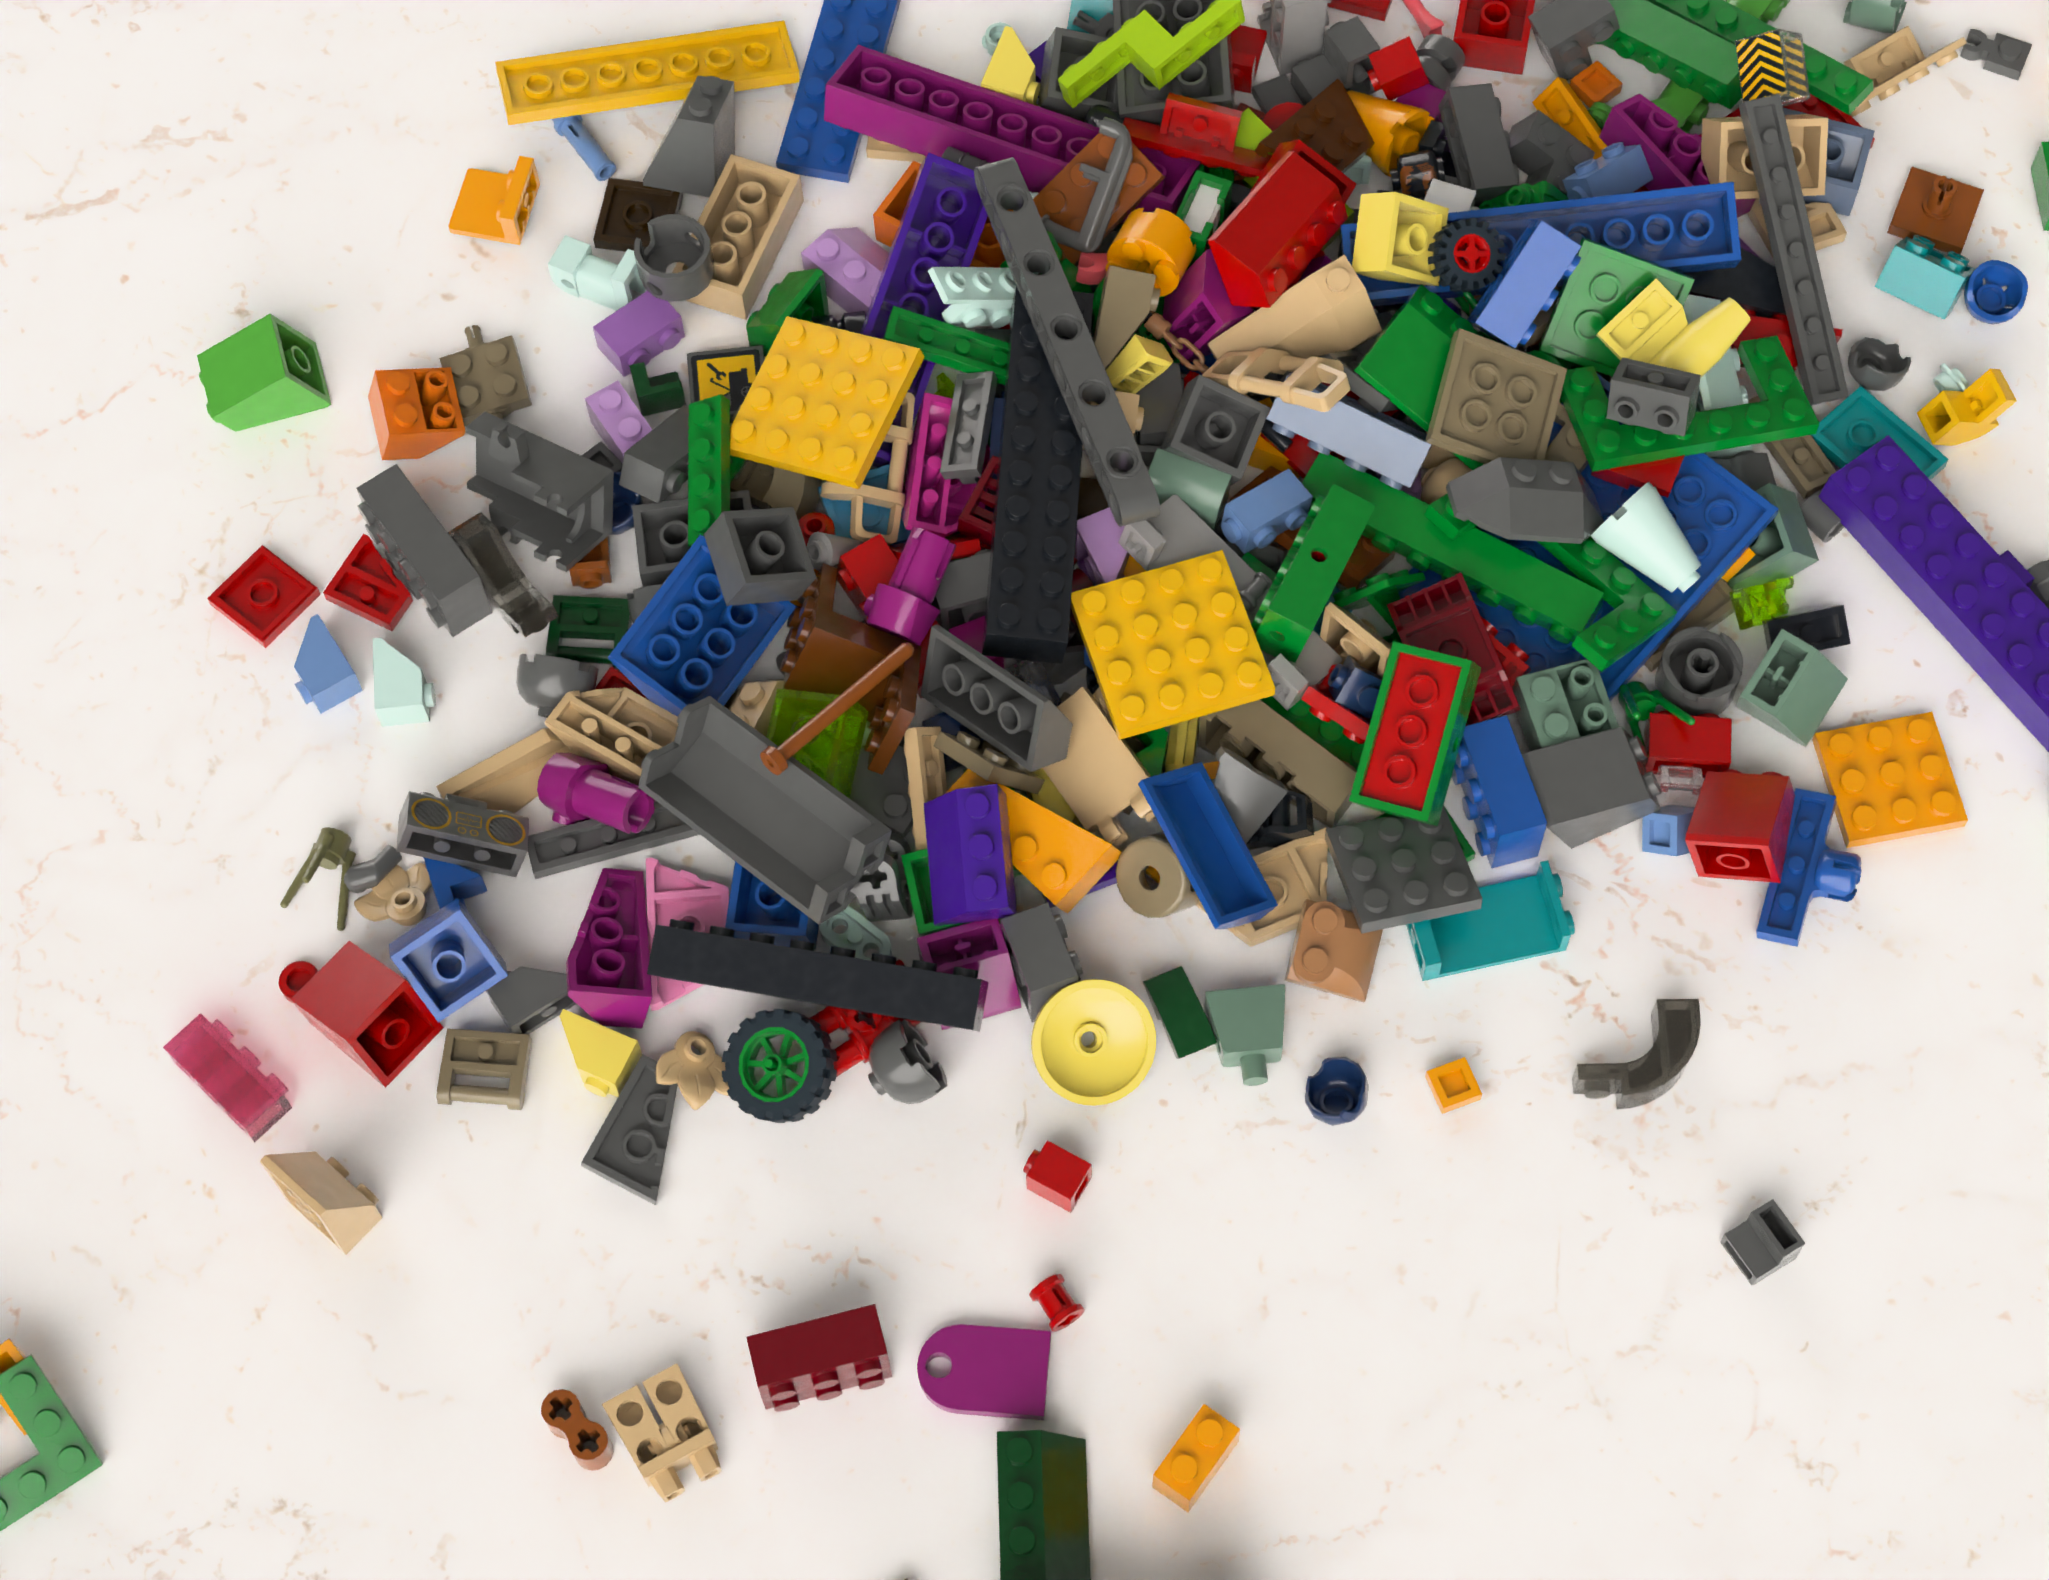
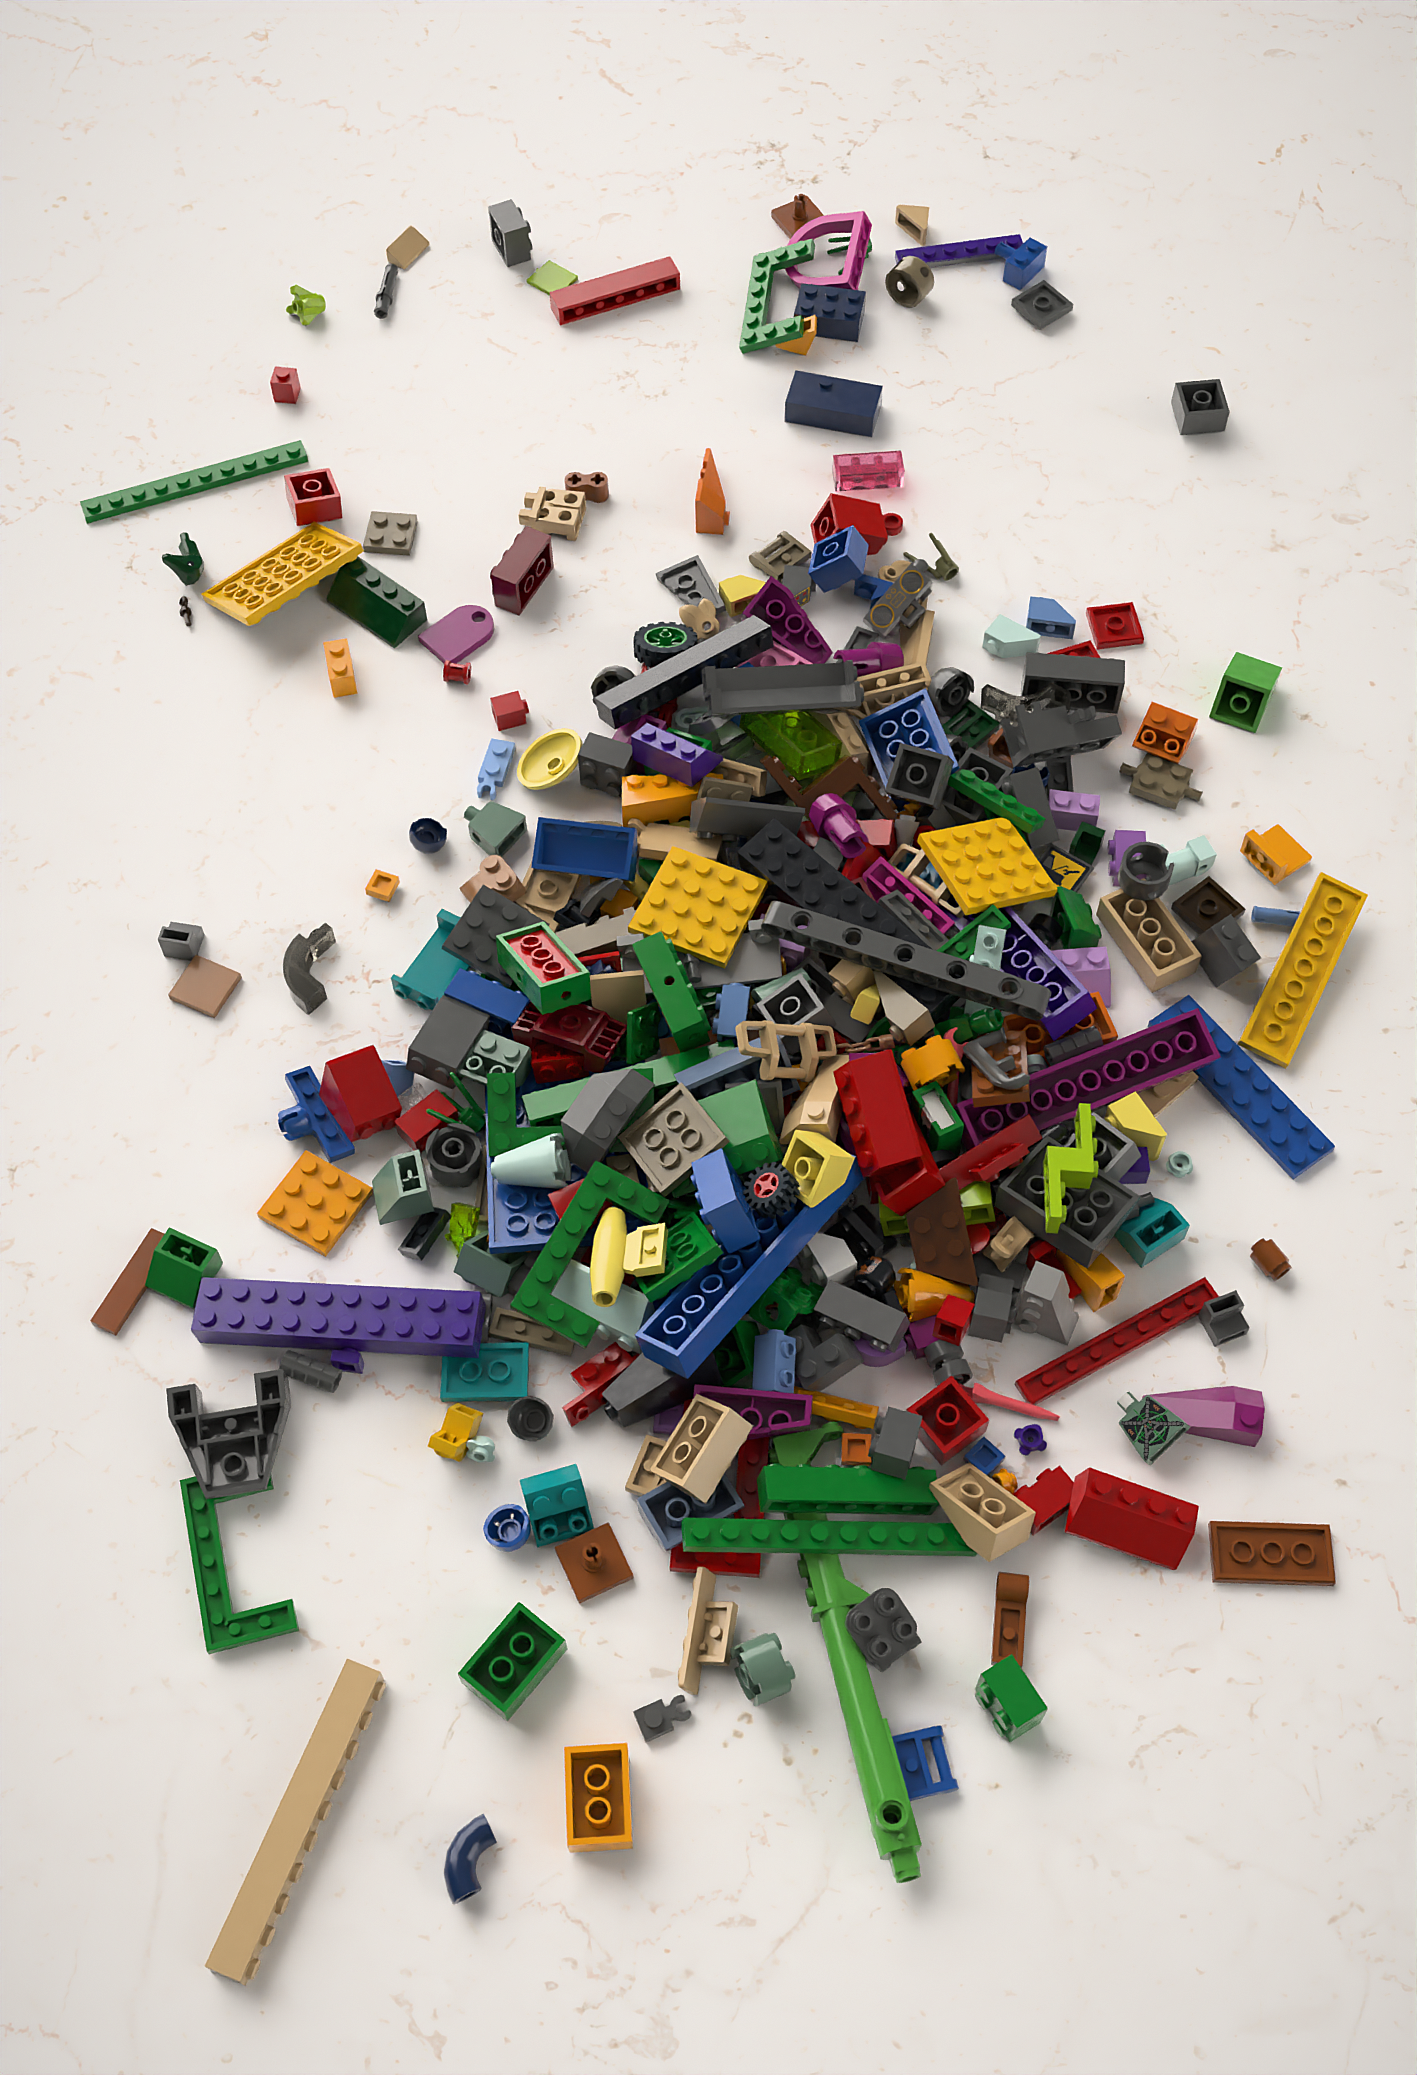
camera: 130 degrees right, 5 degrees down
(126, 1225) = (833, 403): none -> dark blue brick
(324, 1196) = (772, 453): tan slope -> none
(461, 1235) = (710, 499): none -> orange wedge
(776, 758) = (795, 695): dark orange bar -> none
(1152, 1123) = (495, 766): none -> light blue plate
(1179, 1012) = (532, 806): dark green slope -> none
(1259, 89) = (1008, 1243): none -> tan hips
(1653, 397) = (587, 1207): dark grey brick -> none
(1773, 66) = (758, 1487): piece -> none
(1784, 1160) = (205, 986): none -> medium nougat tile
(1793, 250) = (628, 1401): dark grey plate -> none

